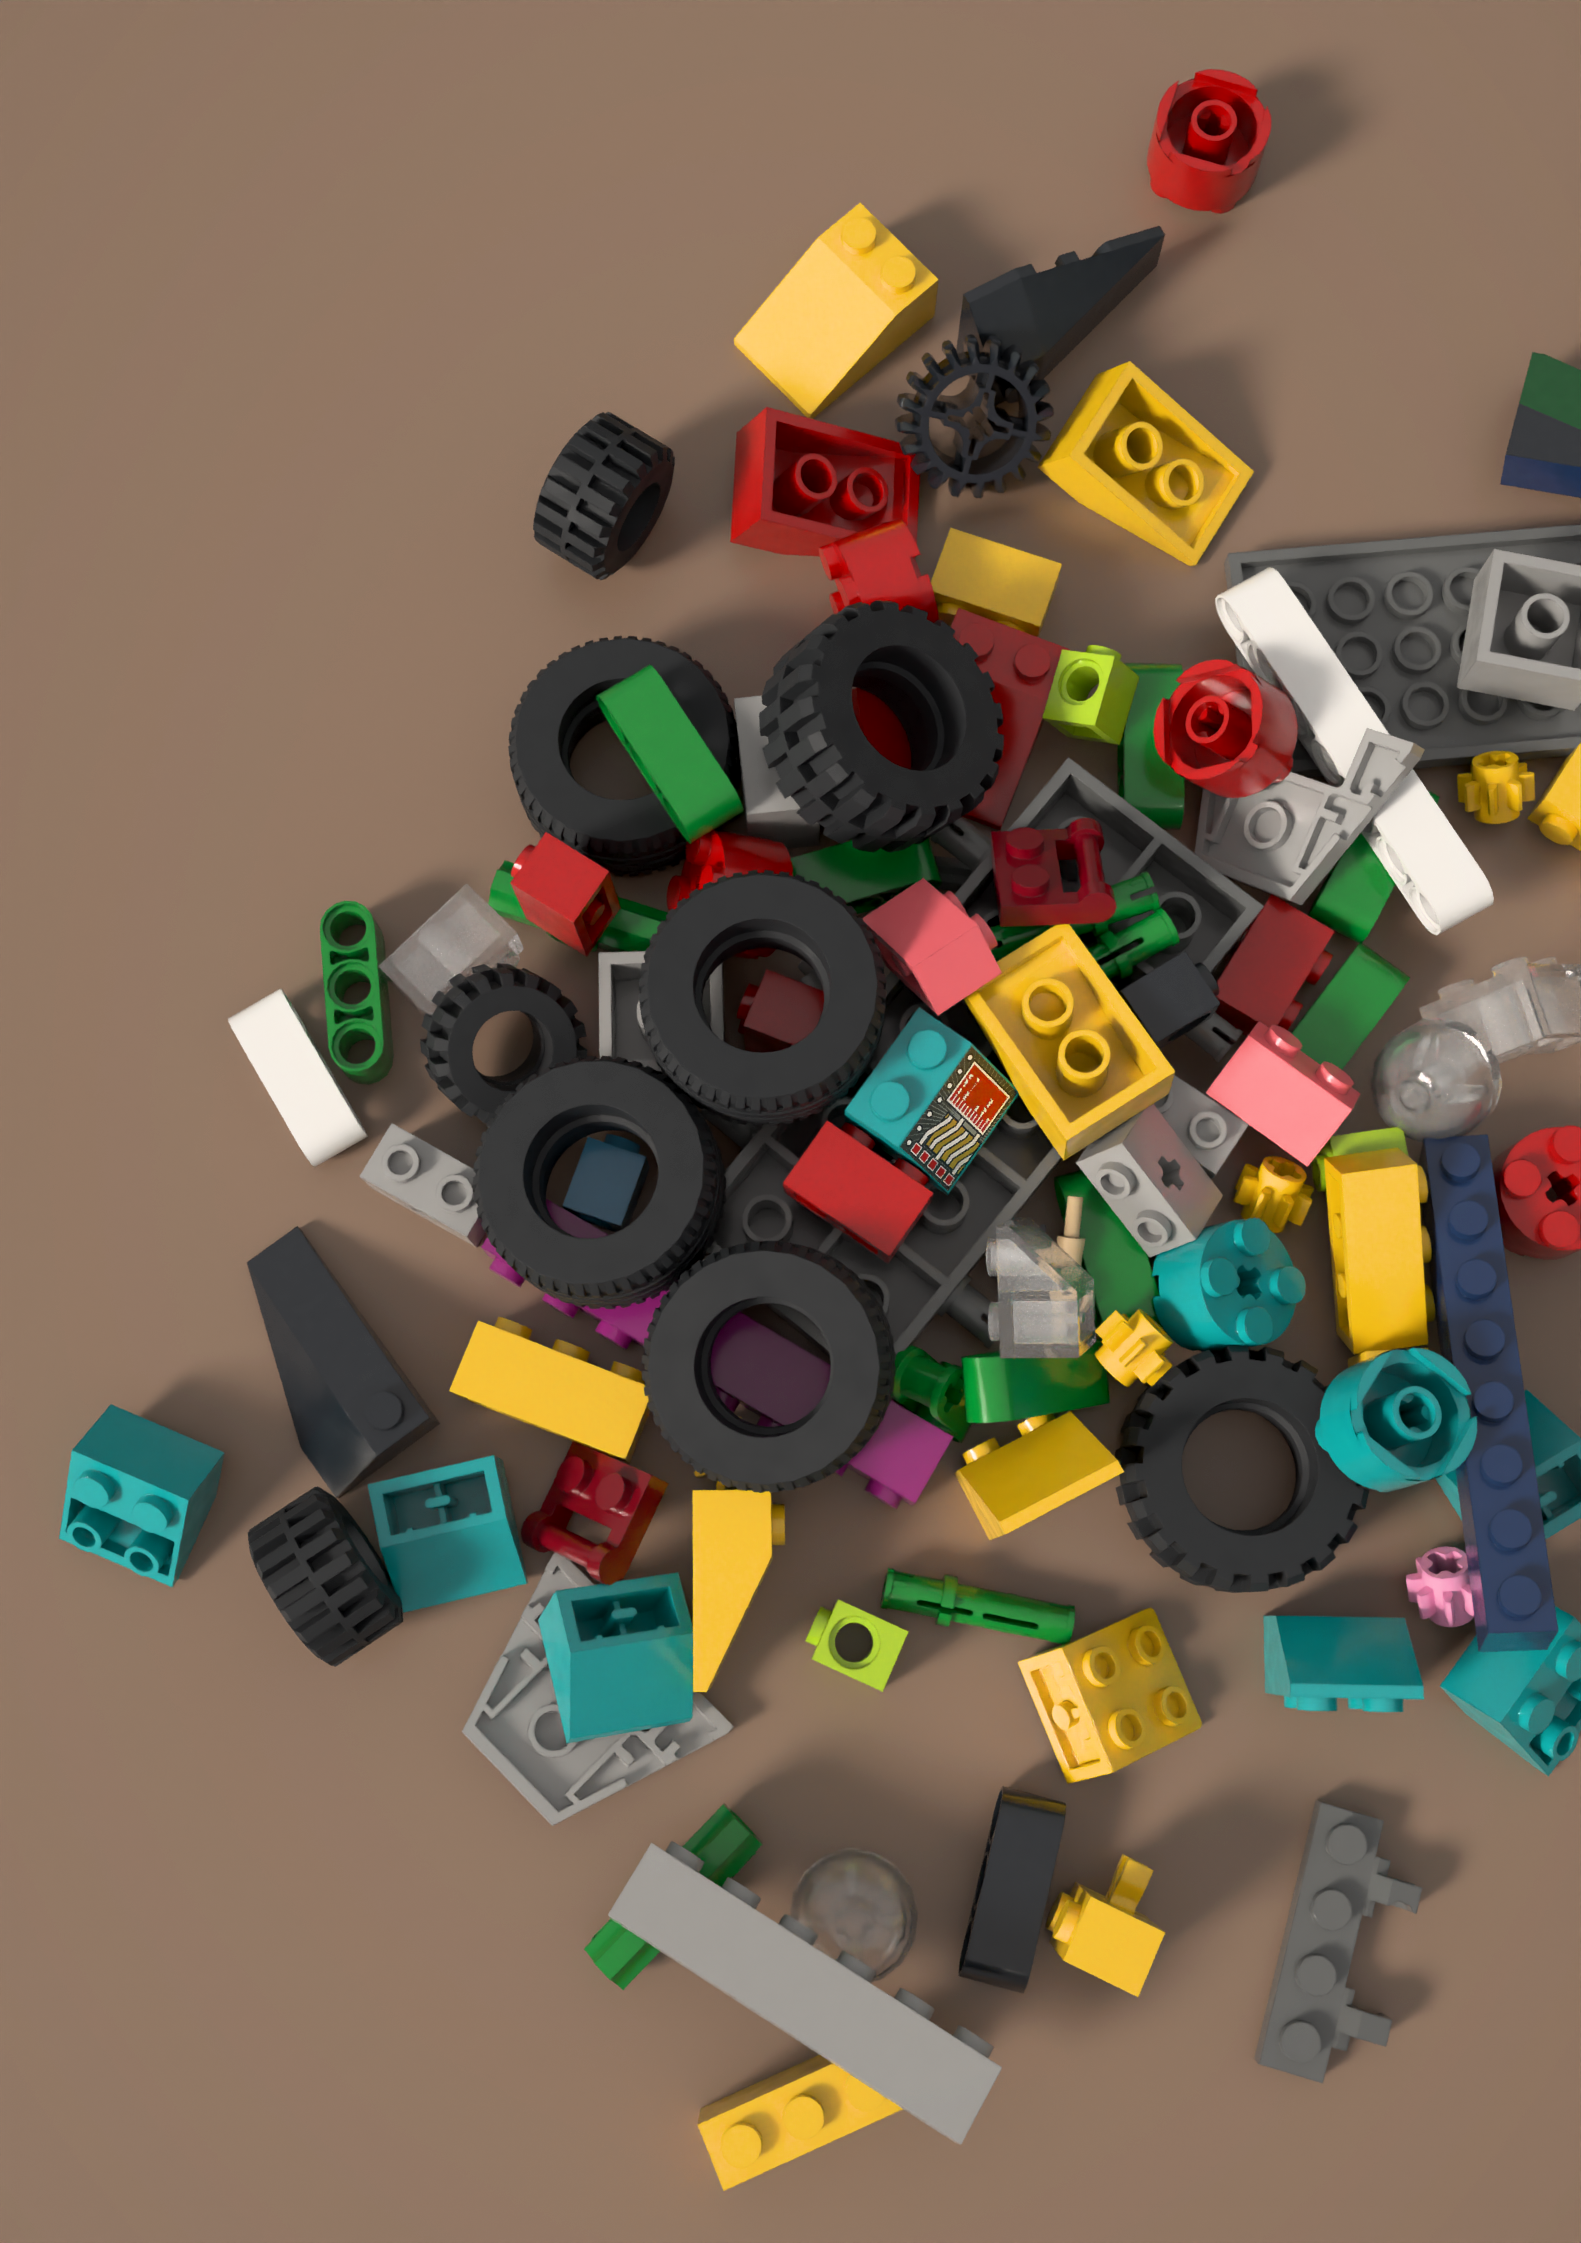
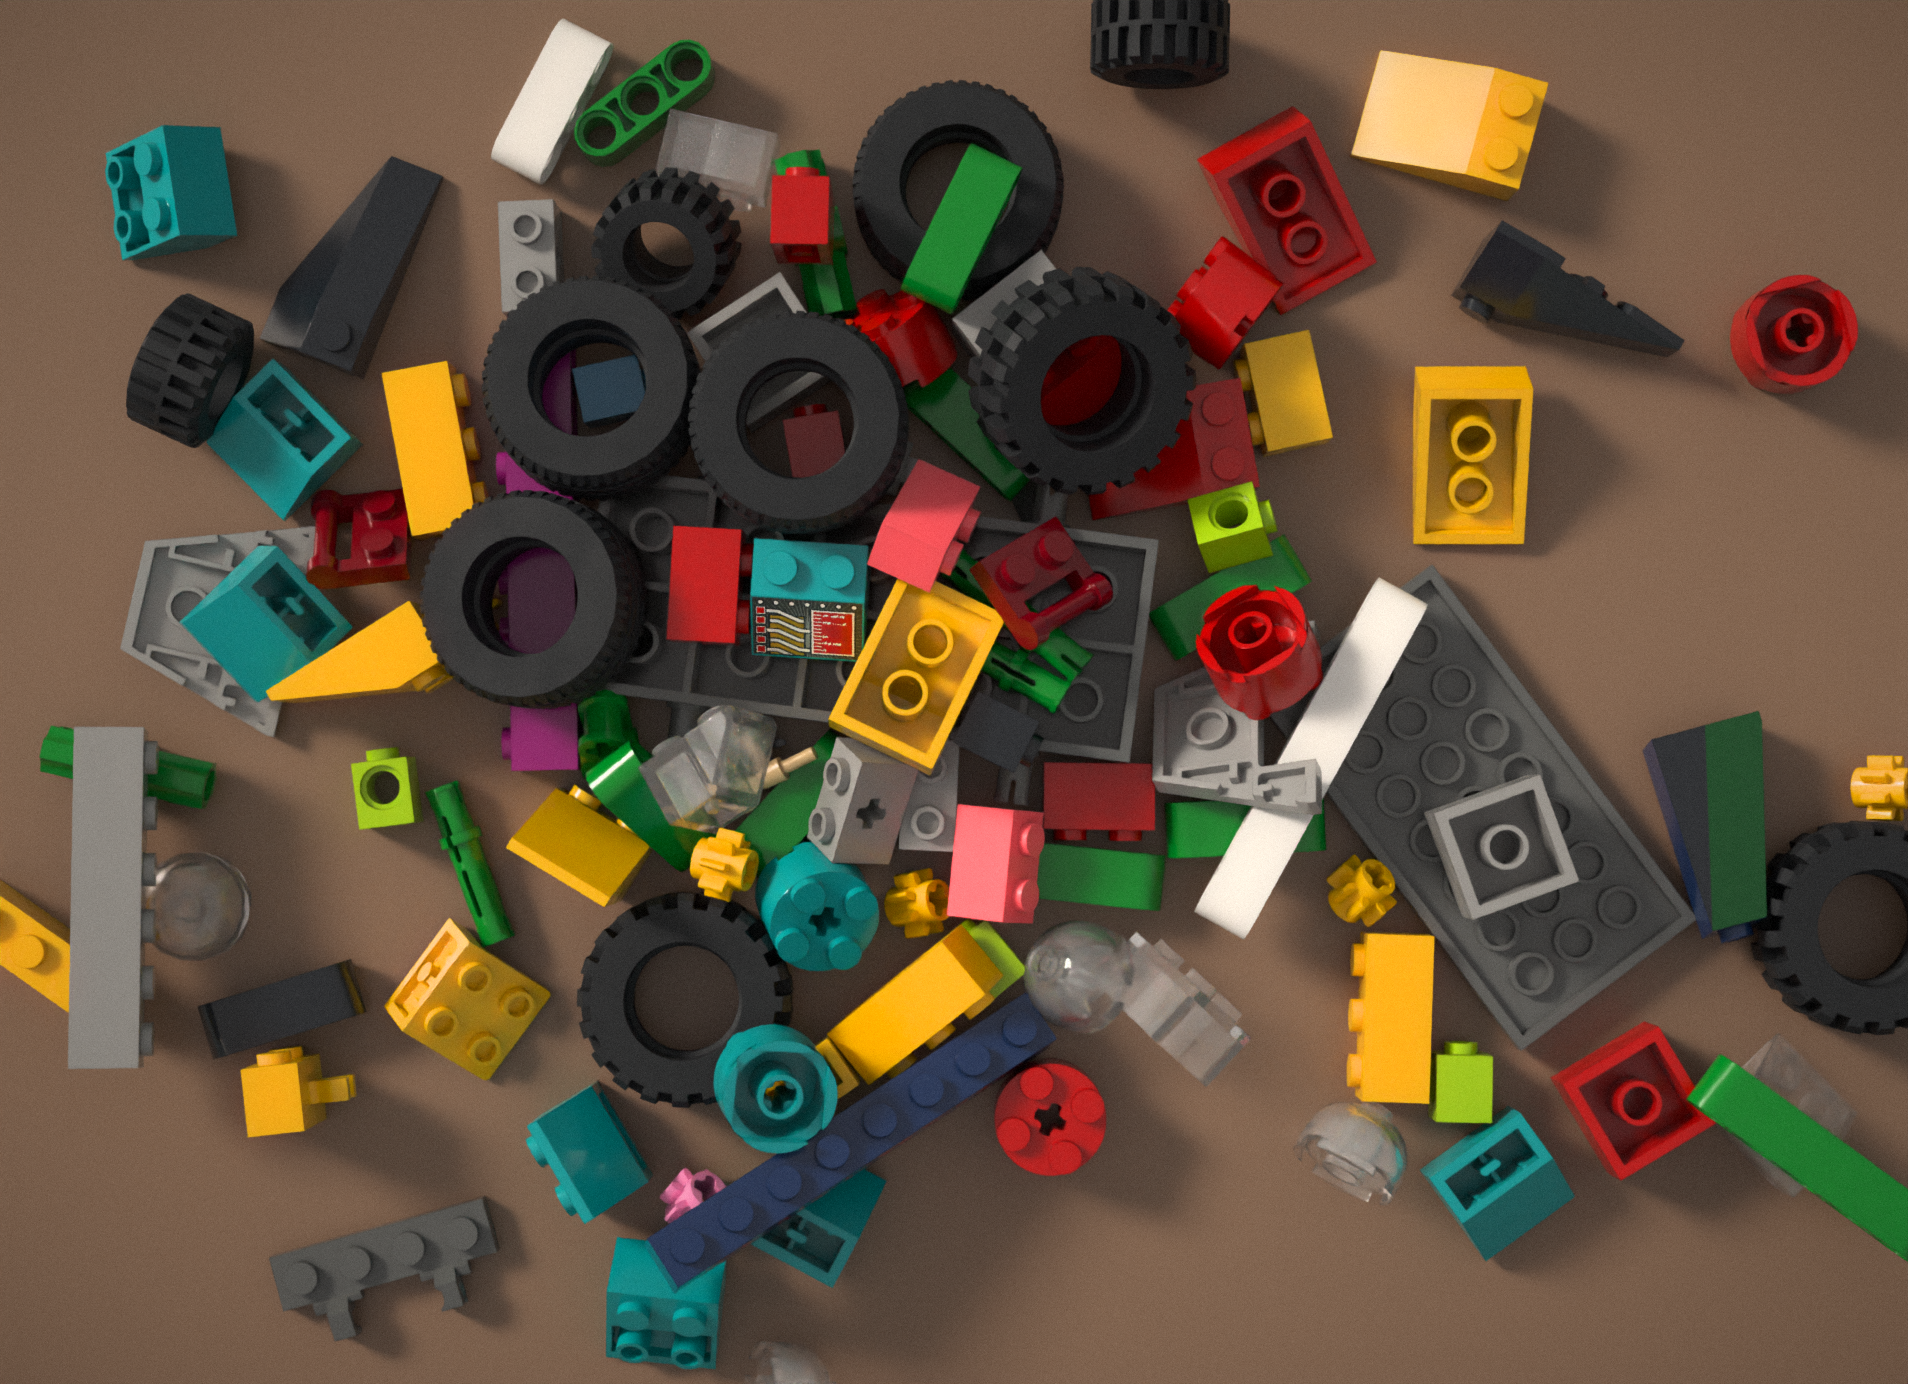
camera: 55 degrees right, 10 degrees up
(979, 392) = (1418, 260): black gear -> none

